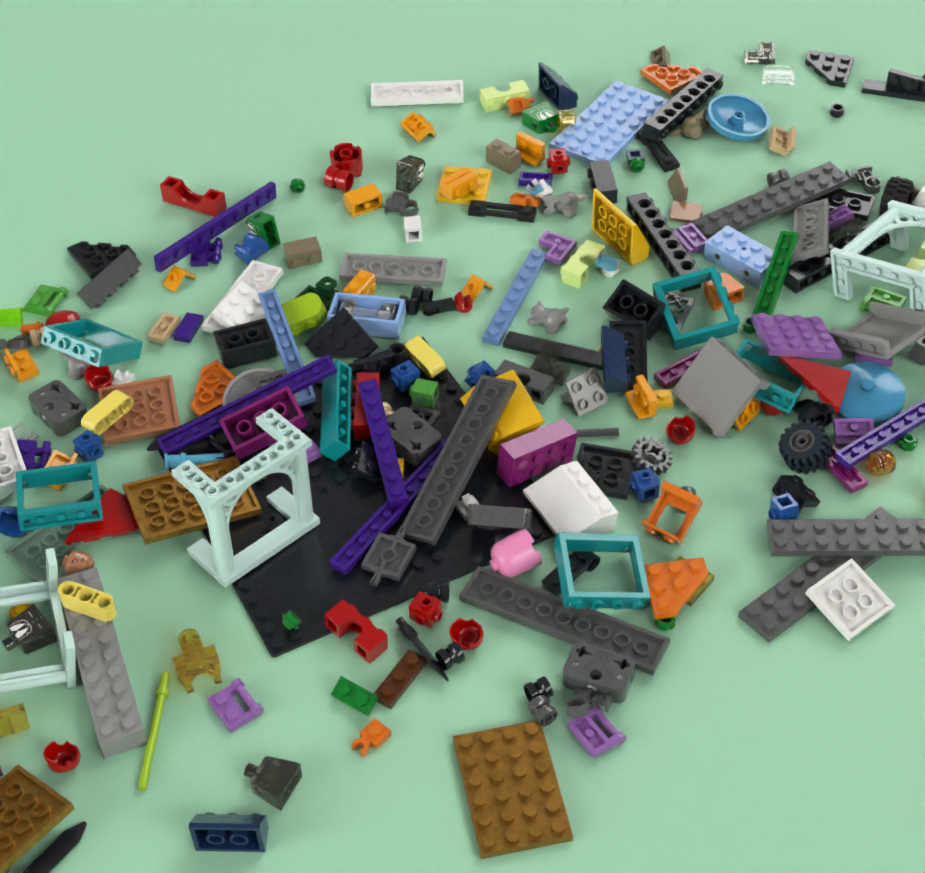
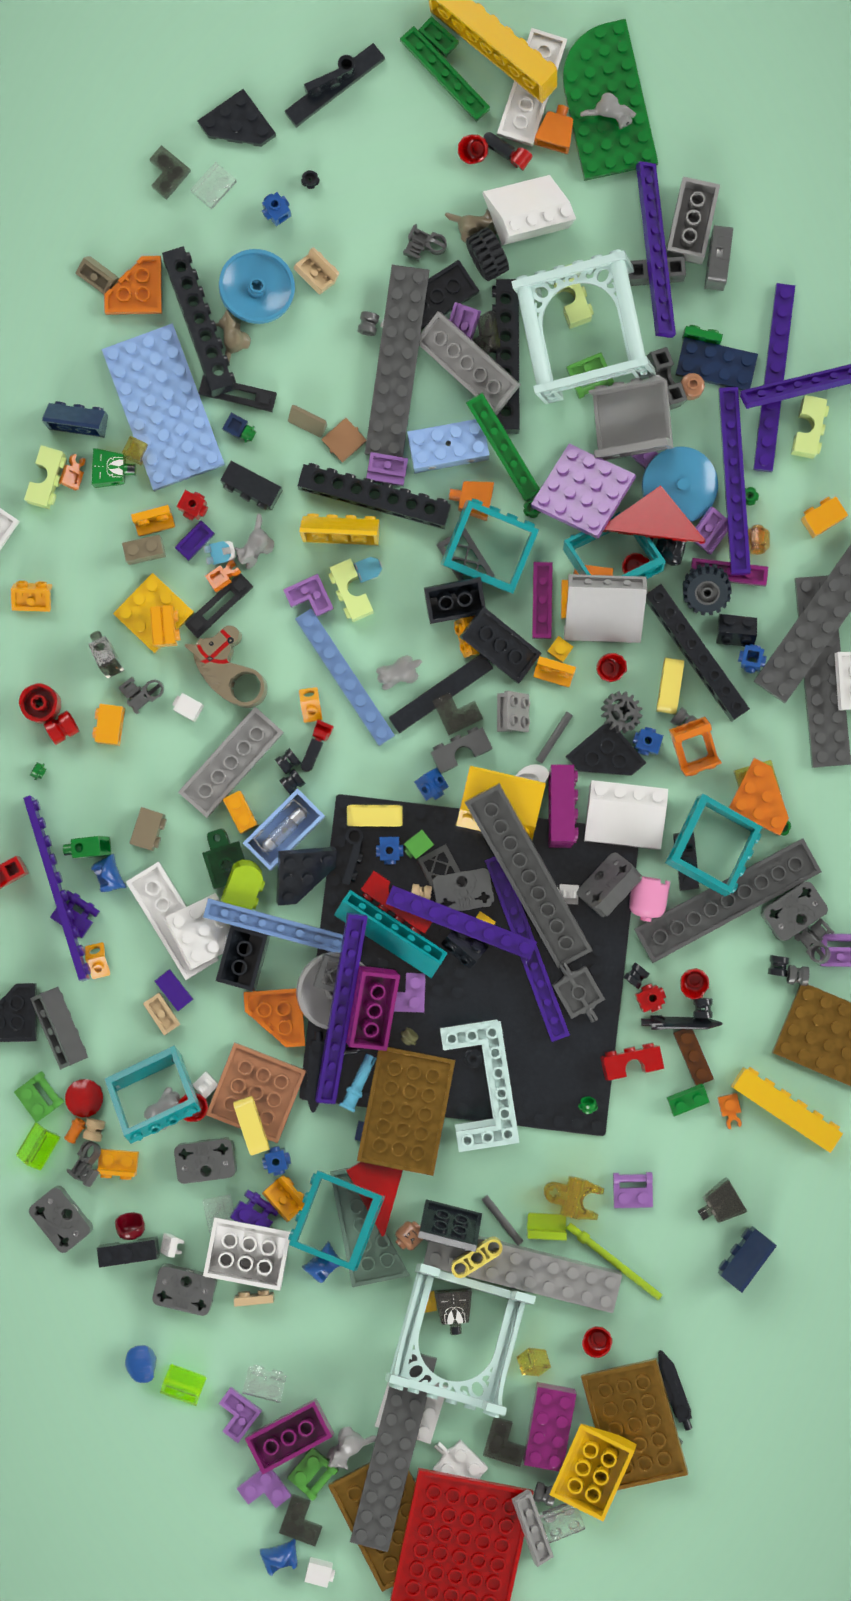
camera: 55 degrees left, 40 degrees up
(105, 573) = (450, 1225): none -> black plate
(137, 626) = (502, 1220): none -> dark grey bar
(153, 659) = (546, 1226): none -> lime panel
(406, 780) = (787, 1110): none -> yellow brick
(459, 230) = (214, 663): none -> dark tan animal
(614, 360) = (509, 668): dark blue slope -> none
(706, 475) = (670, 685): none -> light yellow beam
(748, 477) = (696, 653): none -> black brick
(798, 102) = (276, 208): none -> blue brick

